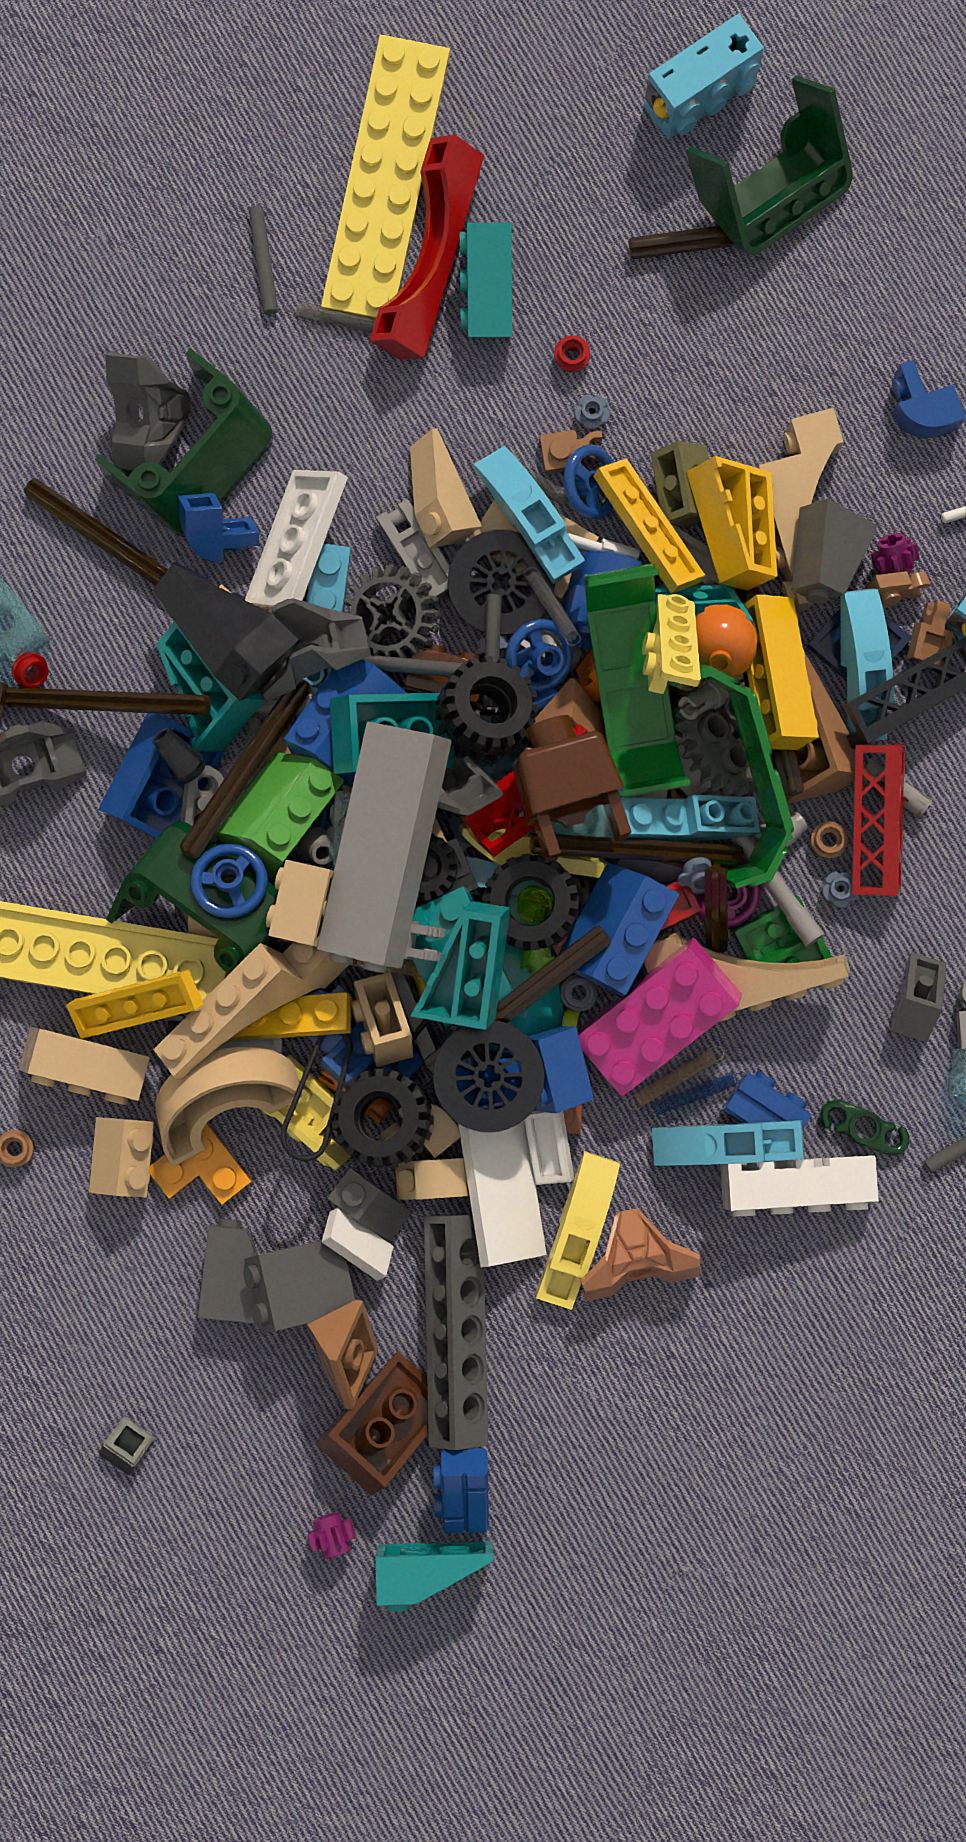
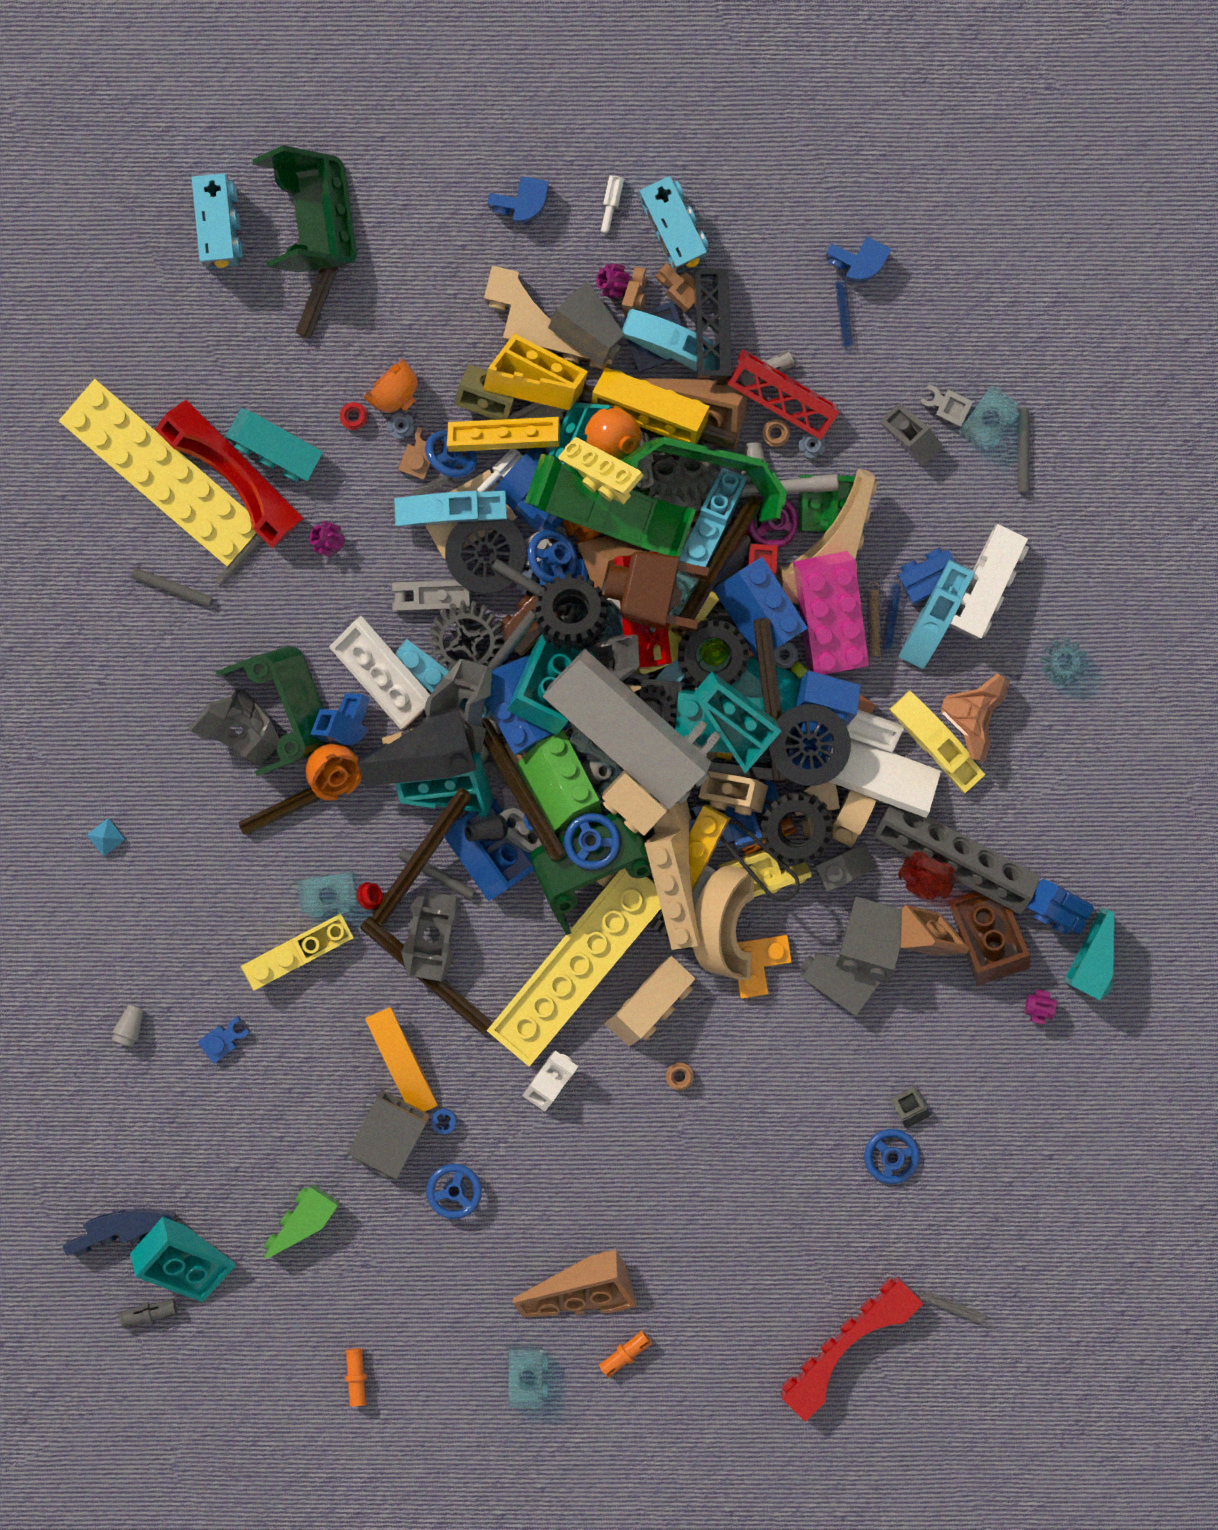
camera: 60 degrees left, 5 degrees up
(41, 1460) = (912, 1151): none -> blue piece
(99, 742) = (441, 876): none -> dark grey bar
(121, 1157) = (725, 1009): tan brick -> none
(135, 1004) = (635, 946): yellow plate -> none
(148, 544) = (333, 771): none -> orange cylinder
(357, 1244) = (866, 888): white tile -> none
(411, 1308) = (927, 876): none -> clear red plate
(415, 397) = (326, 538): none -> magenta gear
(439, 495) = (404, 560): tan slope -> none
(536, 959) = (752, 672): clear neon green plate -> none
(554, 600) = (523, 530): light grey piece -> none
(629, 376) = (394, 389): none -> orange cylinder
(694, 874) = (754, 534): sand blue plate -> none
(716, 908) = (782, 535): dark brown axle -> none
(749, 1318) = (1073, 660): none -> clear light blue gear
(852, 1114) = (988, 517): dark green piece -> none

